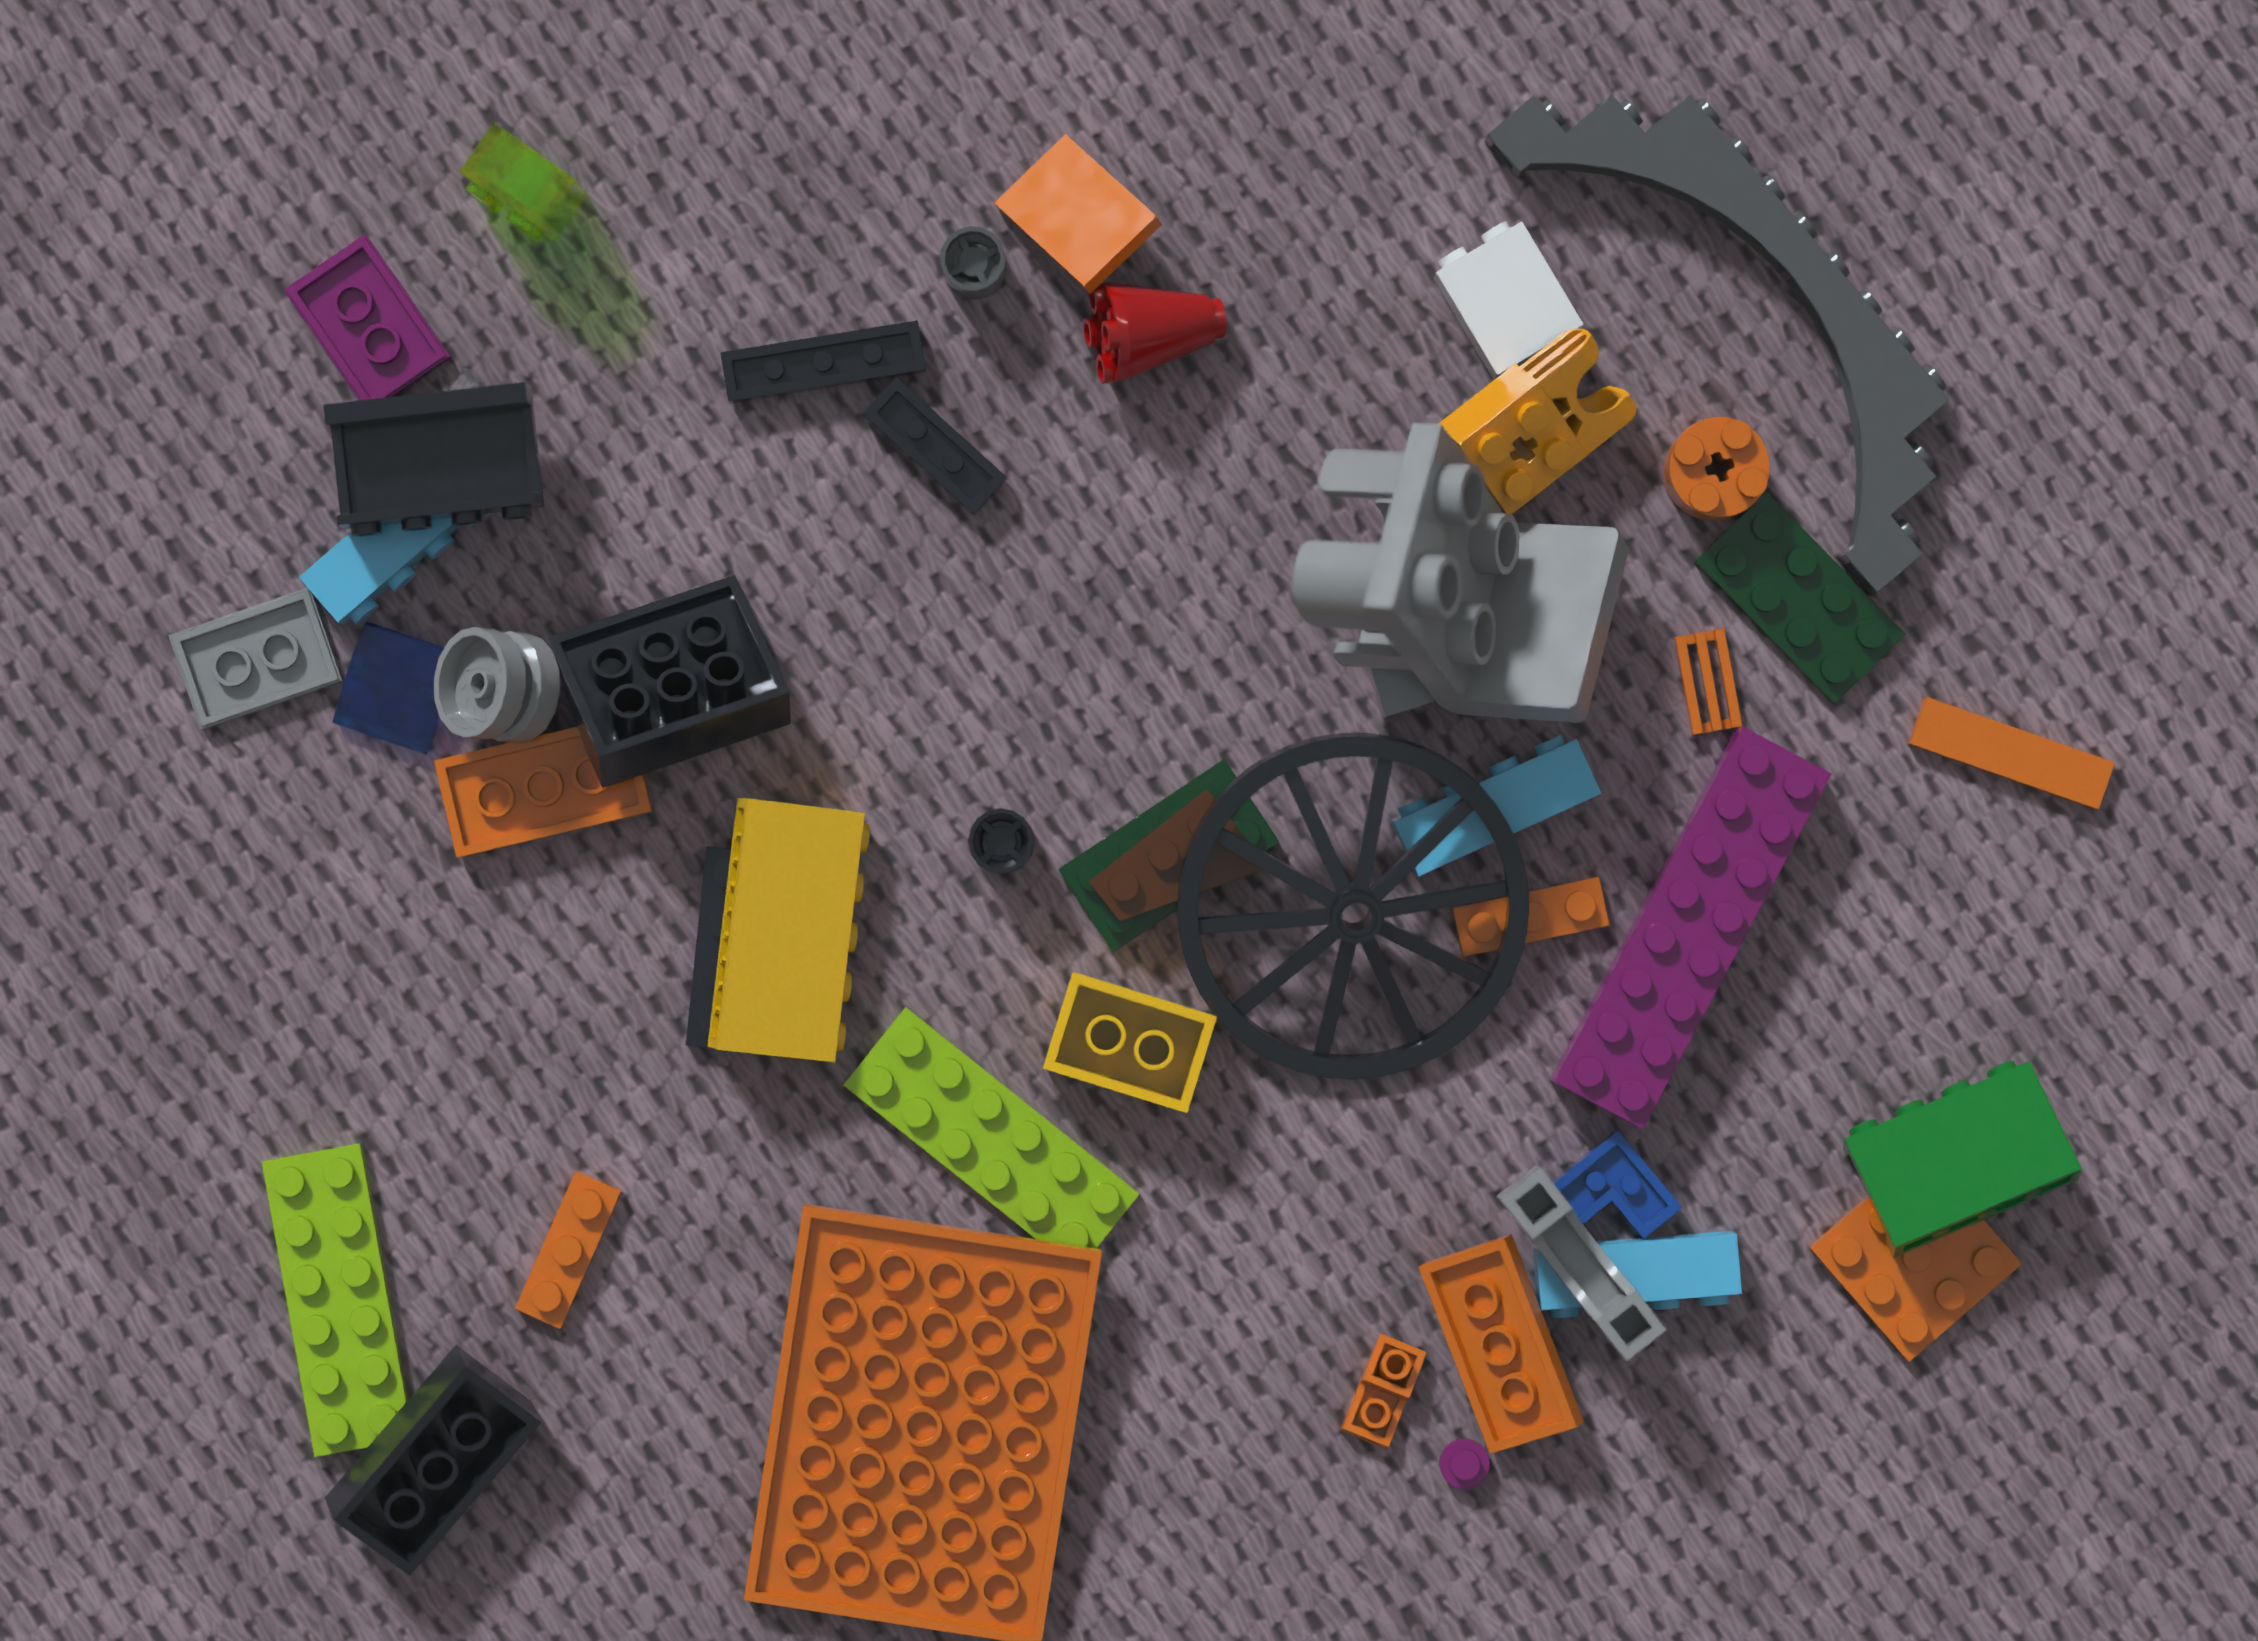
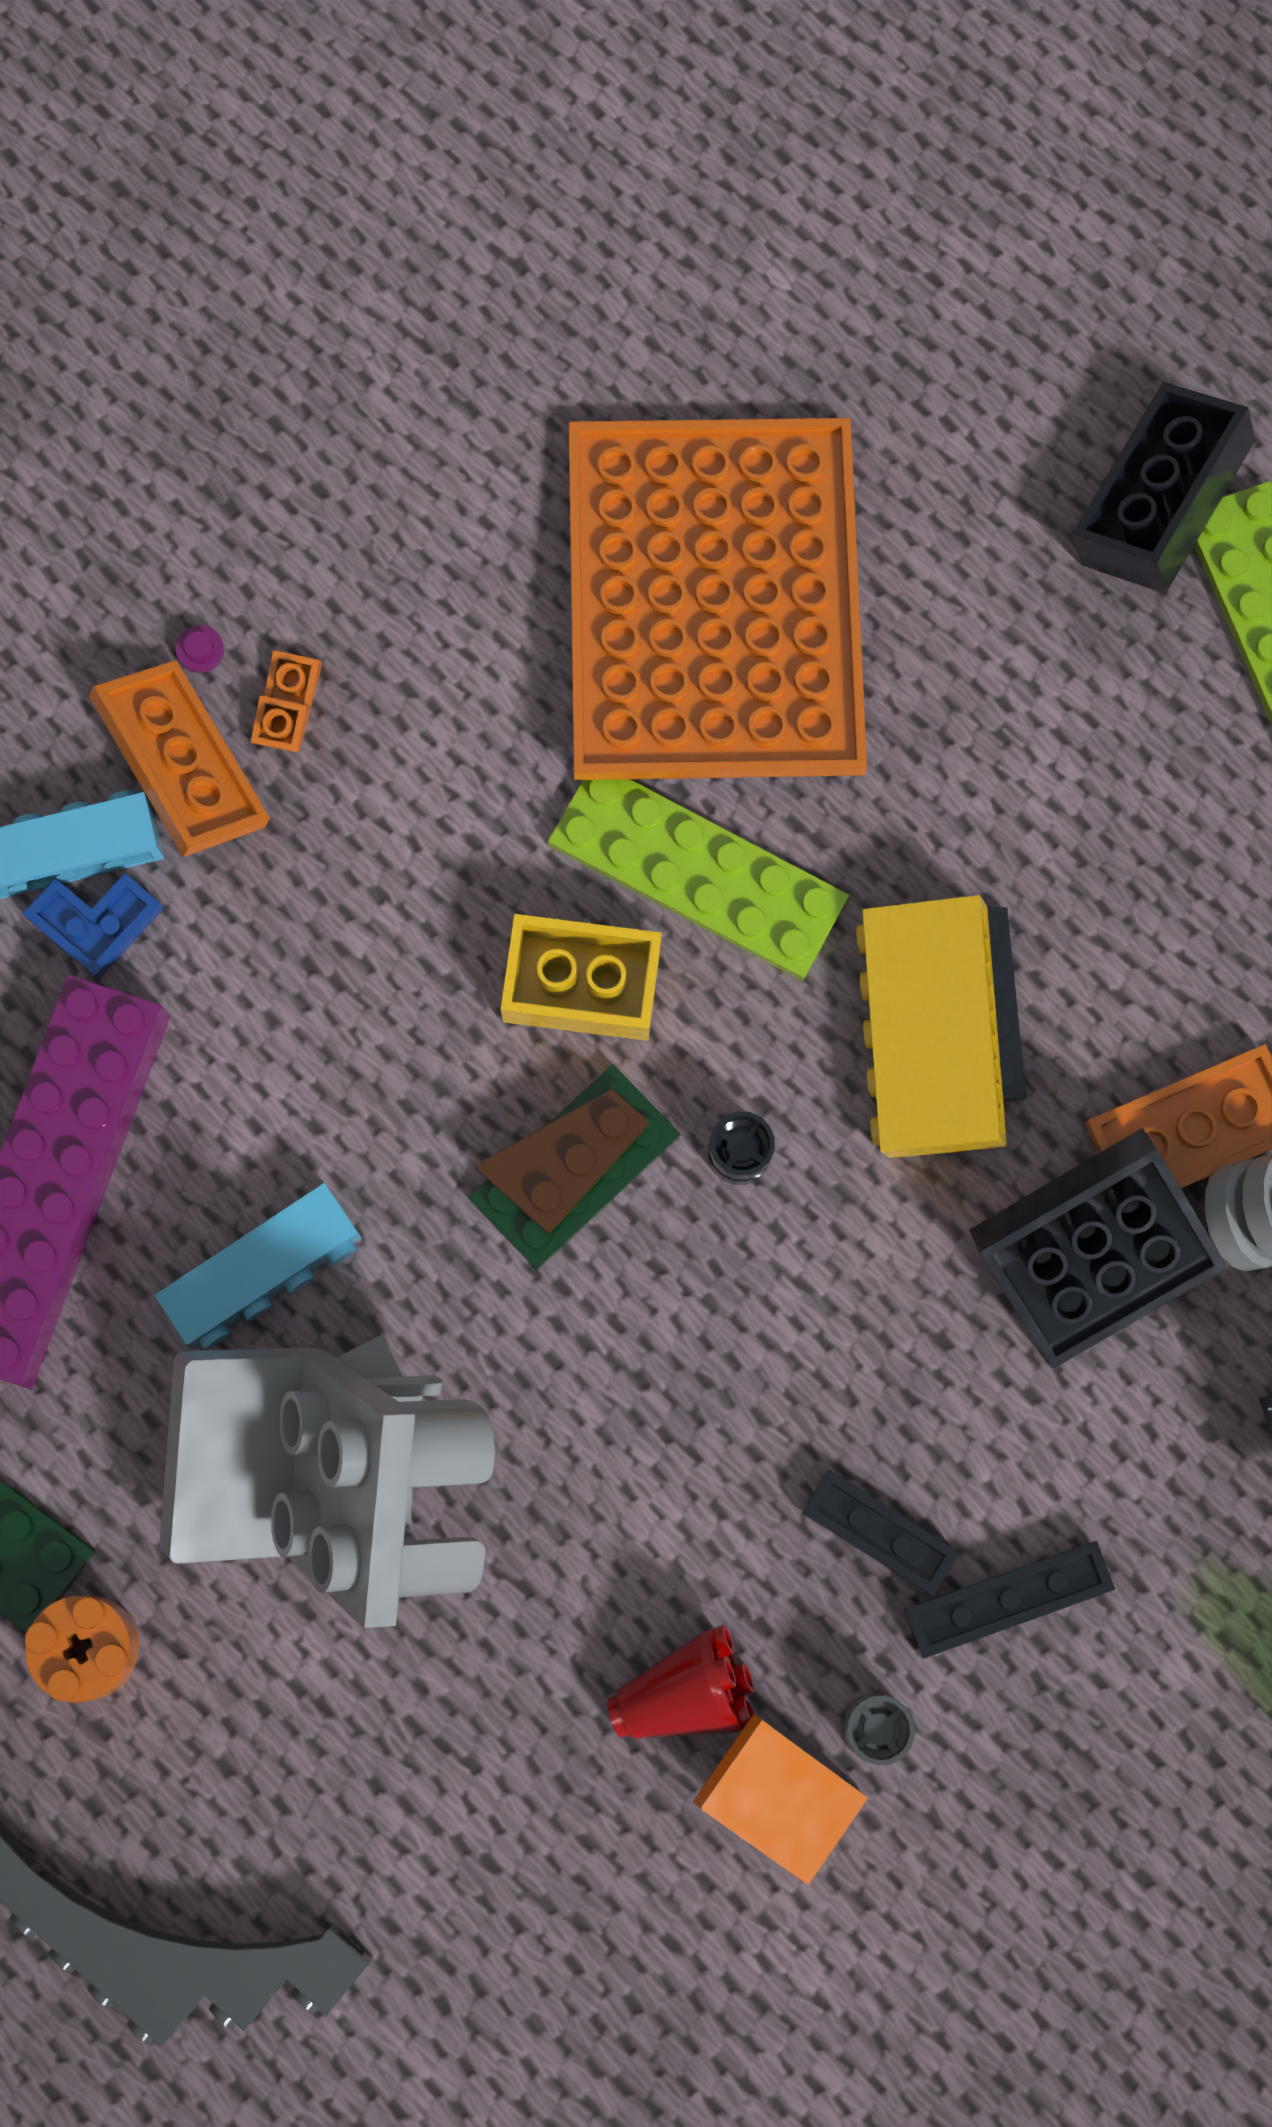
camera: 170 degrees right, 10 degrees down
(568, 1249) = (1077, 704): orange plate -> none
(1418, 1048) = (387, 1149): black wheel -> none
(1505, 297) = (323, 1790): white brick -> none
(1532, 426) = (274, 1663): light orange brick -> none
(1552, 914) = (209, 1168): orange plate -> none
(1581, 1263) = (107, 833): light grey arch -> none
(1701, 640) = (77, 1471): orange tile -> none

